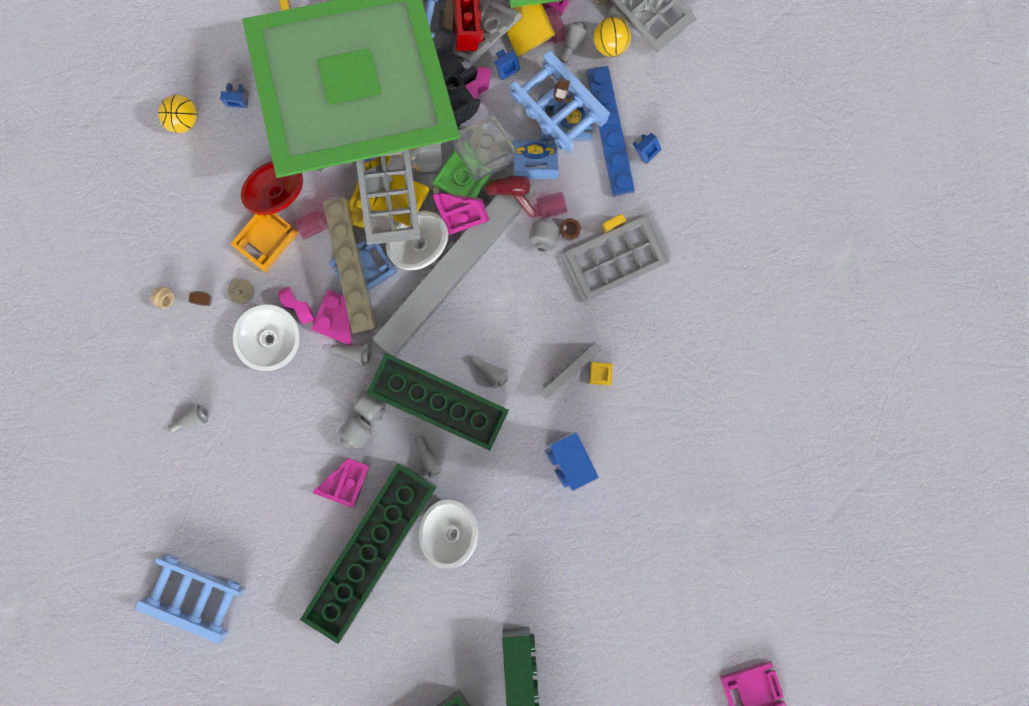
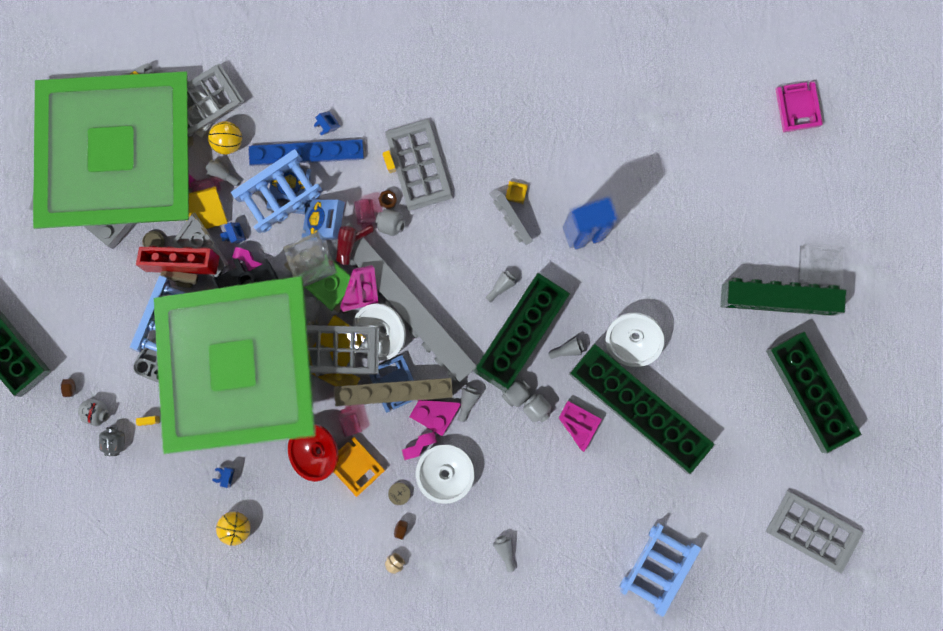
camera: 85 degrees left, 0 degrees up
(561, 89) = (268, 187): tile -> none

